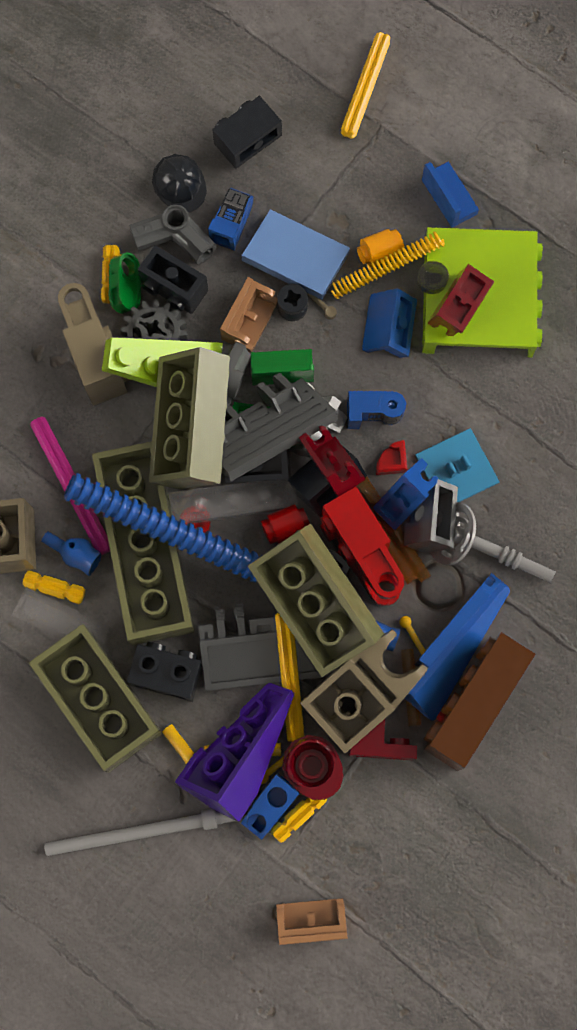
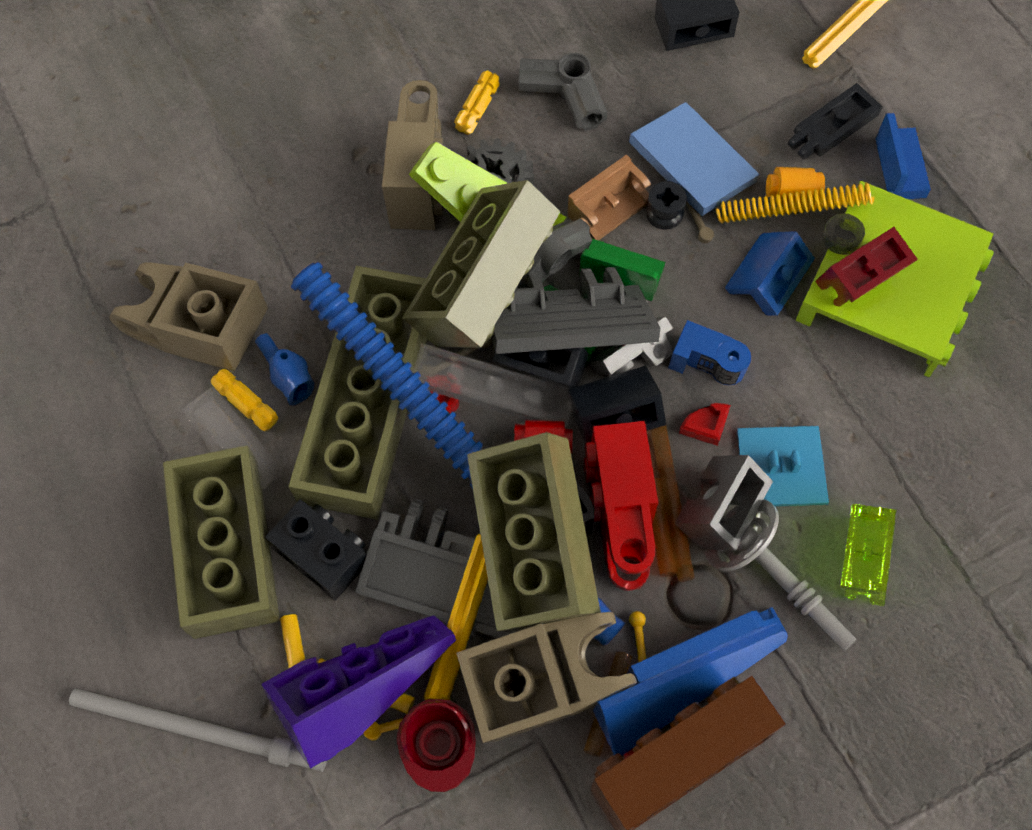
camera: 25 degrees right, 10 degrees down
(64, 473) = (320, 252): dark pink axle -> none
(123, 288) = (482, 119): green piece -> none
(173, 280) = (541, 128): black brick -> none
(179, 182) = (599, 37): black piece -> none
(231, 219) = (636, 95): blue leg -> none
(270, 806) = (361, 769): blue leg -> none
(296, 818) = (388, 801): yellow axle -> none
(333, 461) = (630, 383): dark red hinge -> none
(374, 747) = (525, 753): dark red slope -> none
(388, 181) = (834, 122): none -> black hinge
(405, 495) = (701, 460): blue hinge -> none
(540, 508) = (868, 552): none -> clear neon green hinge

